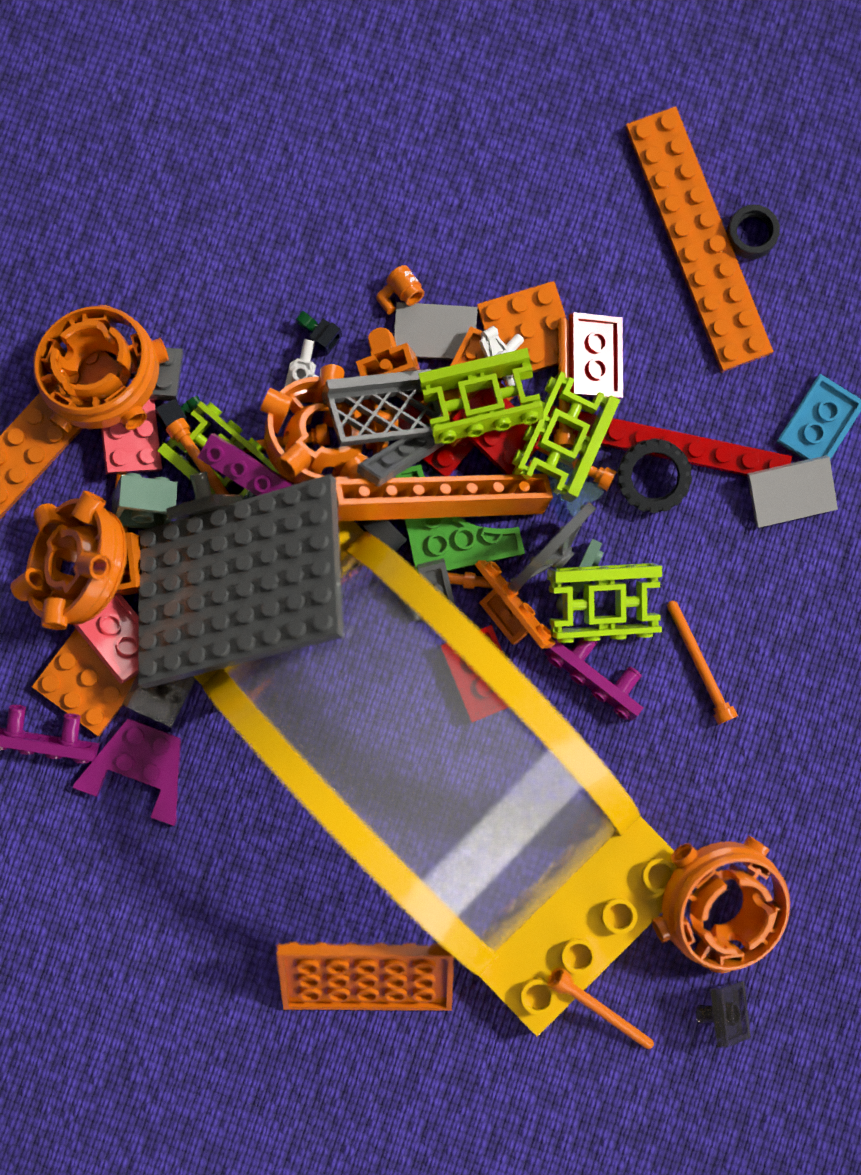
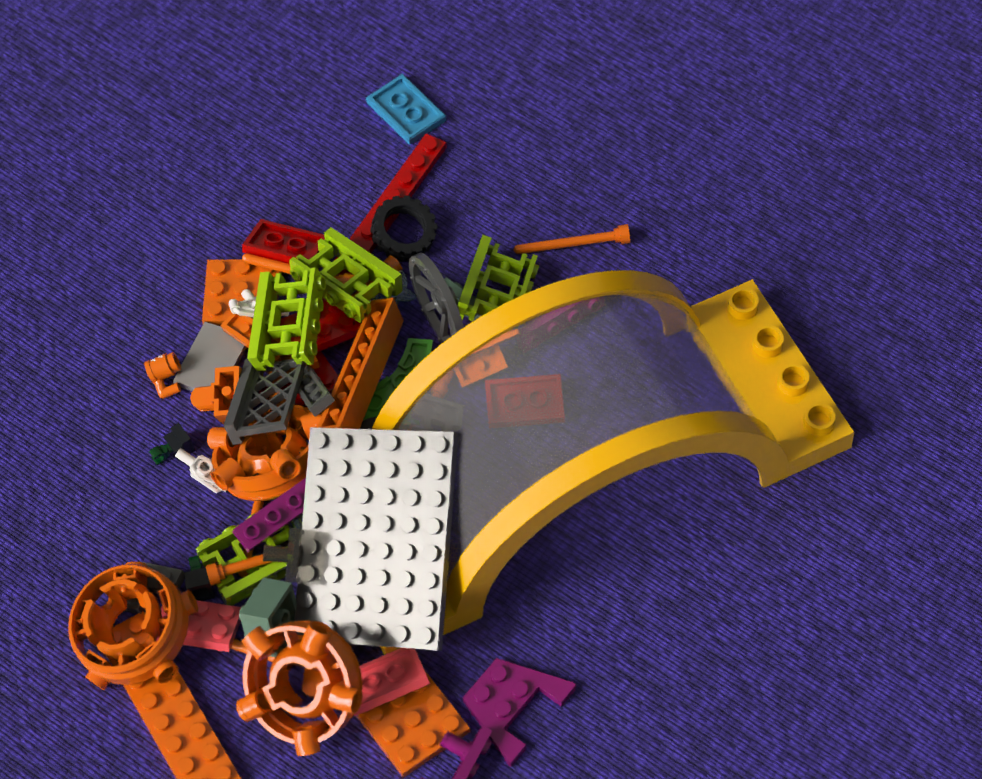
camera: 65 degrees left, 25 degrees down
(160, 701) = (454, 660): clear smoke tile -> none
(365, 976) = (762, 544): orange plate -> none
(562, 982) = (813, 392): orange piece -> none
(699, 239) = (217, 151): orange plate -> none
(727, 1013) = (874, 295): clear smoke tile -> none
(755, 926) = (761, 271): orange piece -> none
(759, 212) = (224, 98): black tyre -> none
(792, 491) = (455, 139): light grey tile -> none

